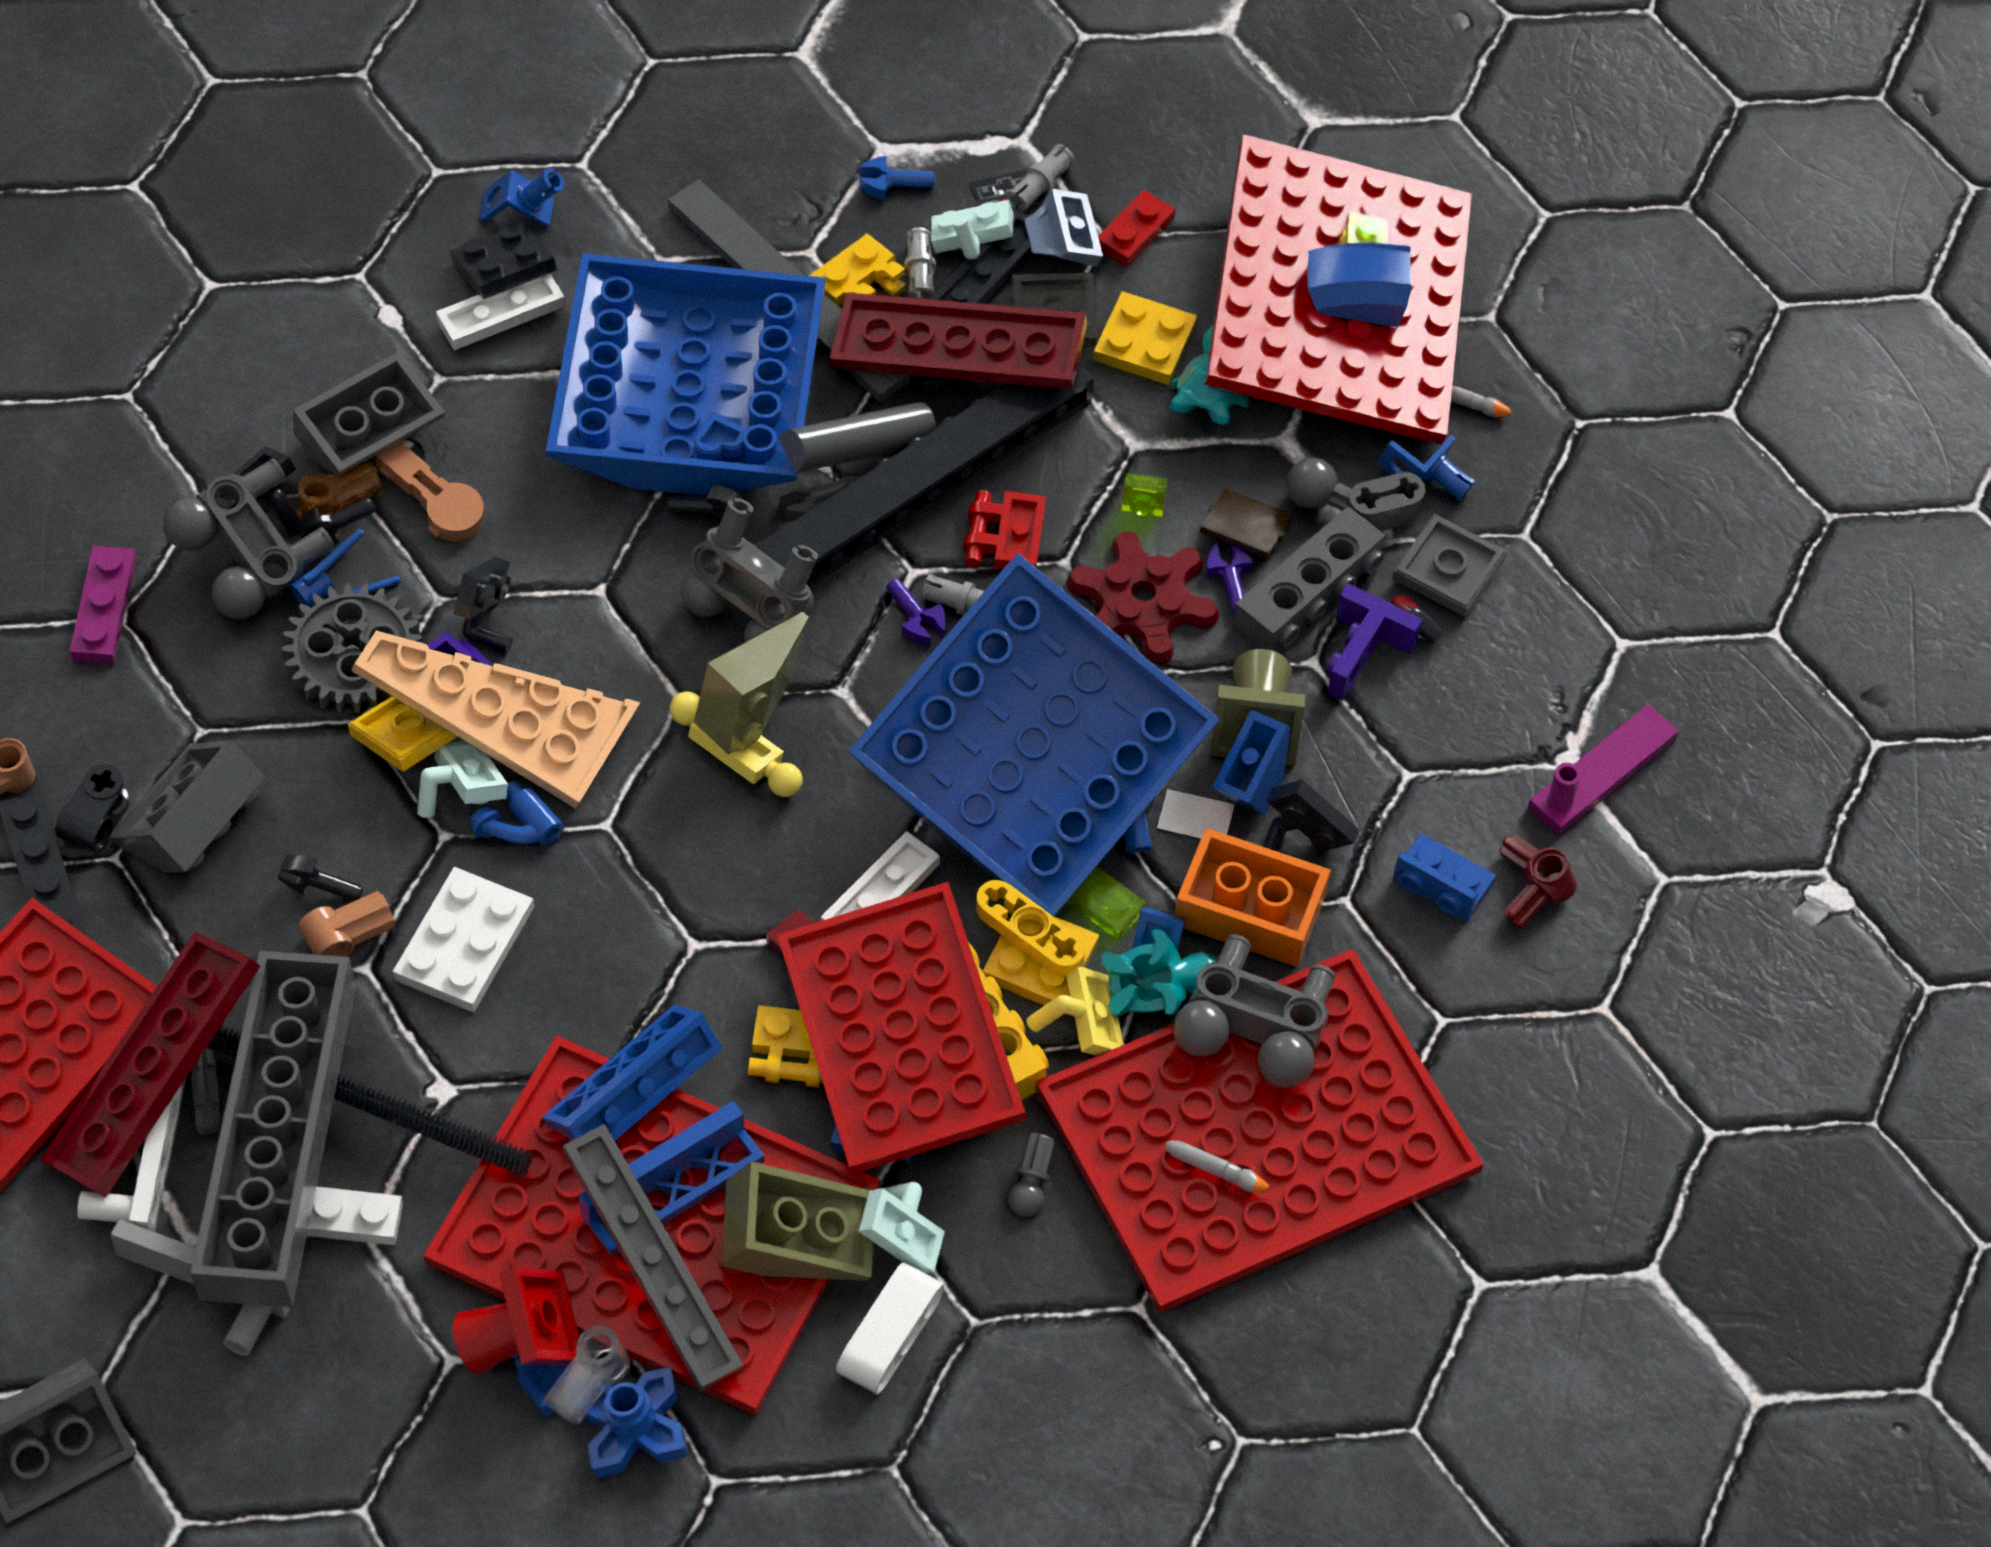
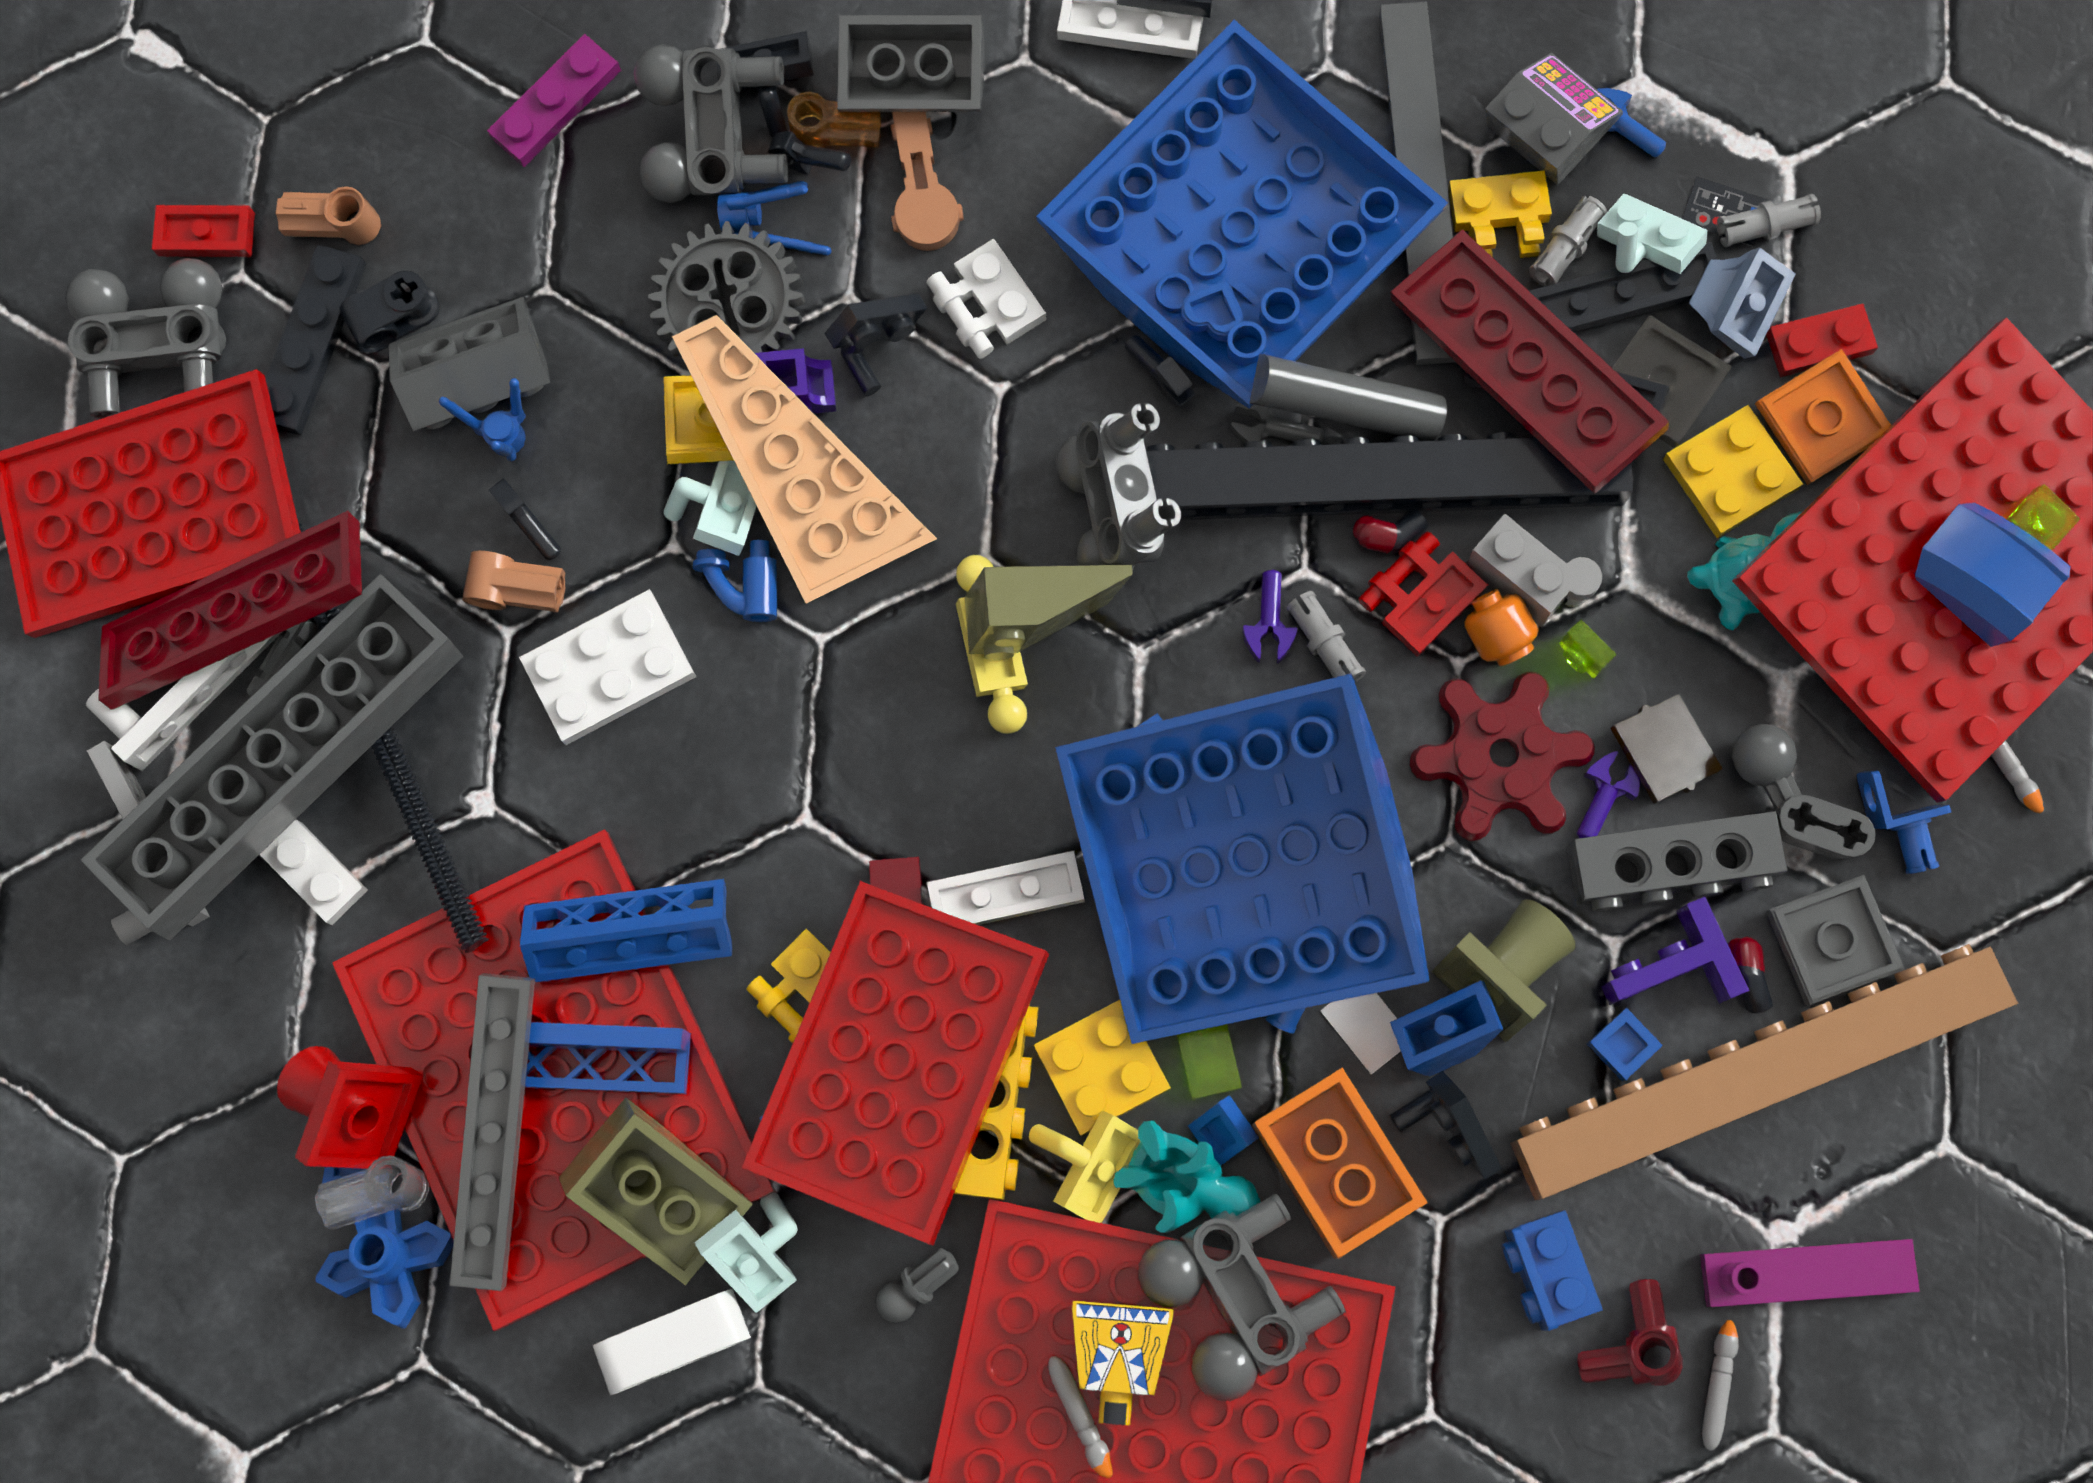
camera: 50 degrees right, 20 degrees up
(251, 833) = (499, 429): none -> blue plant
(546, 529) = (998, 291): none -> white plate
(844, 199) = (1551, 116): none -> dark grey slope
(951, 512) = (1387, 536): none -> arm
(1025, 909) = (1107, 1001): yellow beam -> none
(1070, 471) = (1523, 566): none -> light grey hinge
(1077, 515) = (1501, 627): none -> orange head
(1176, 269) = (1823, 416): none -> orange plate
(1207, 1101) = (1119, 1353): none -> torso
(1372, 711) = (1624, 1044): none -> blue plate
(1469, 673) = (1762, 1073): none -> medium nougat brick
(1592, 849) = (1725, 1348): none -> light grey piece

